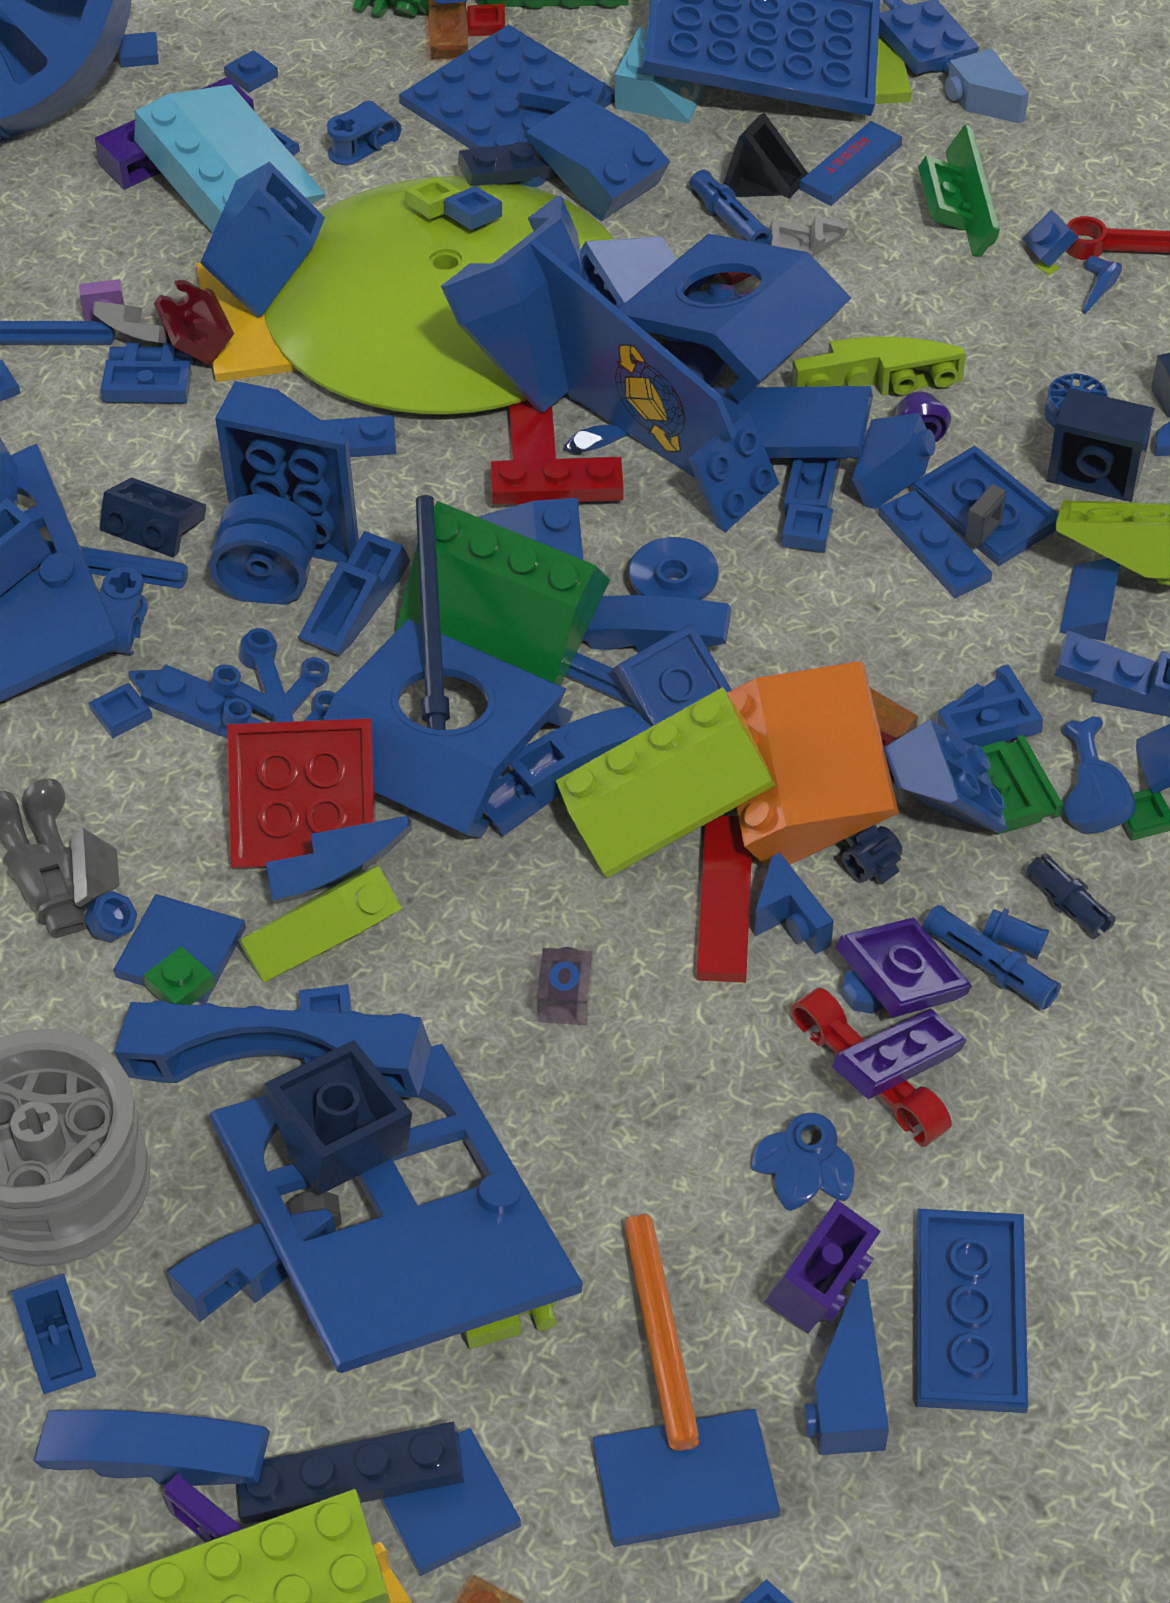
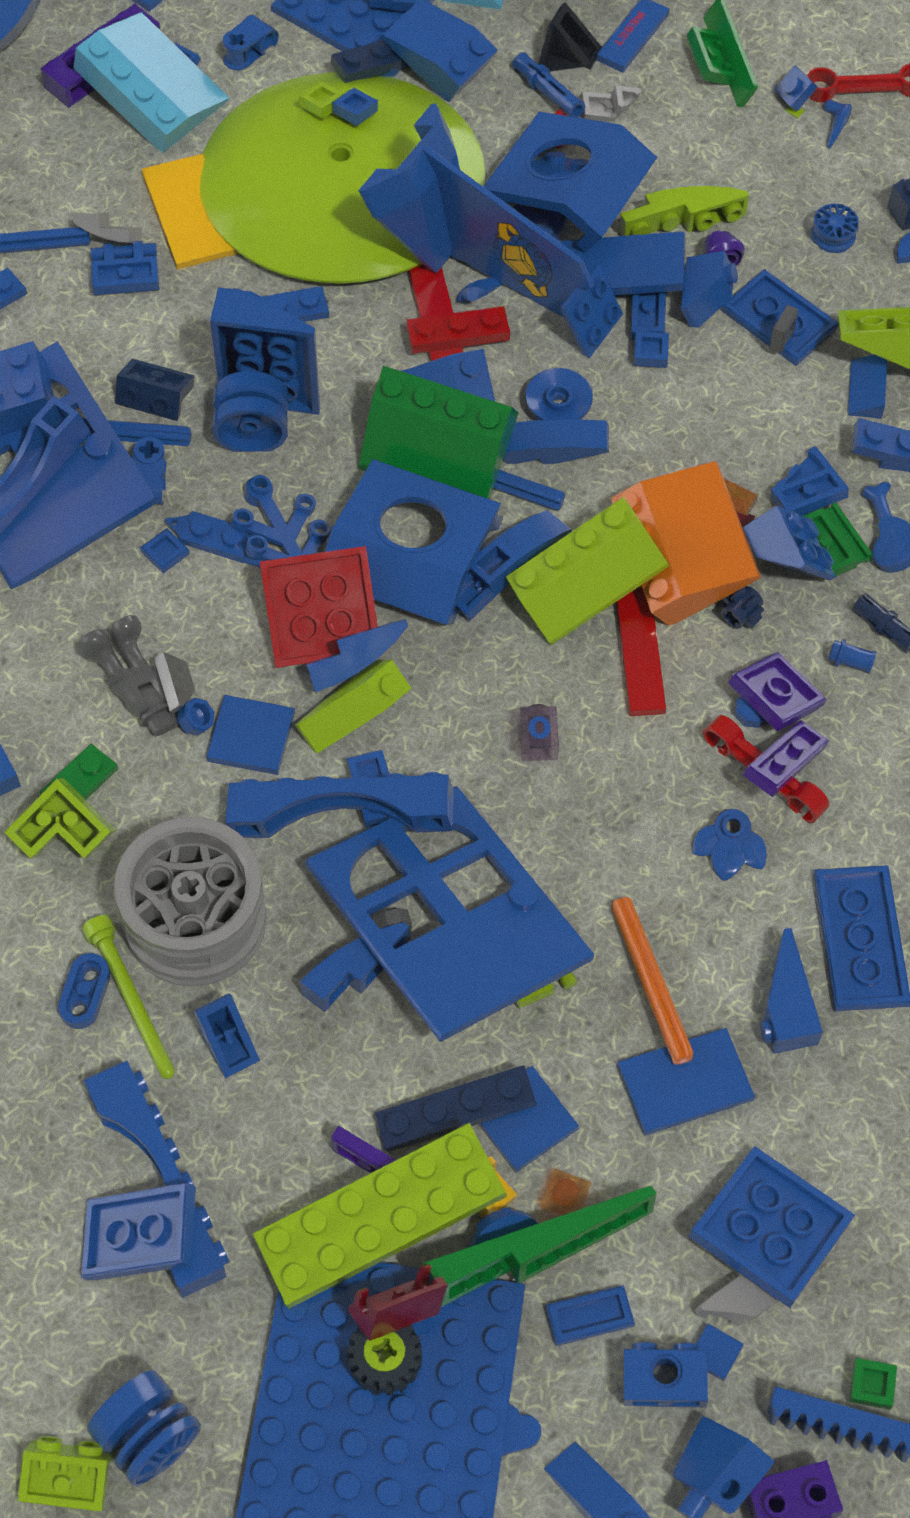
camera: 10 degrees left, 10 degrees up
(101, 291) = (74, 204): medium lavender plate -> none
(153, 1446) = (314, 1107): blue slope -> none
(179, 978) = (258, 760): green plate -> none
(195, 323) = (155, 222): dark red hinge -> none
(261, 237) = (195, 146): blue slope -> none
(338, 1117) = (404, 855): dark blue slope -> none
(355, 593) = (323, 438): blue slope -> none
(434, 705) = (407, 527): dark blue bar -> none
(624, 265) = (483, 147): slope -> none
(670, 675) = (576, 487): blue tile -> none
(789, 900) = (688, 648): blue slope -> none
(823, 1266) = (758, 922): dark purple brick -> none
(935, 544) = (746, 353): blue plate -> none
(1007, 967) = (850, 683): blue pin -> none
(1100, 444) = (860, 262): dark blue brick -> none

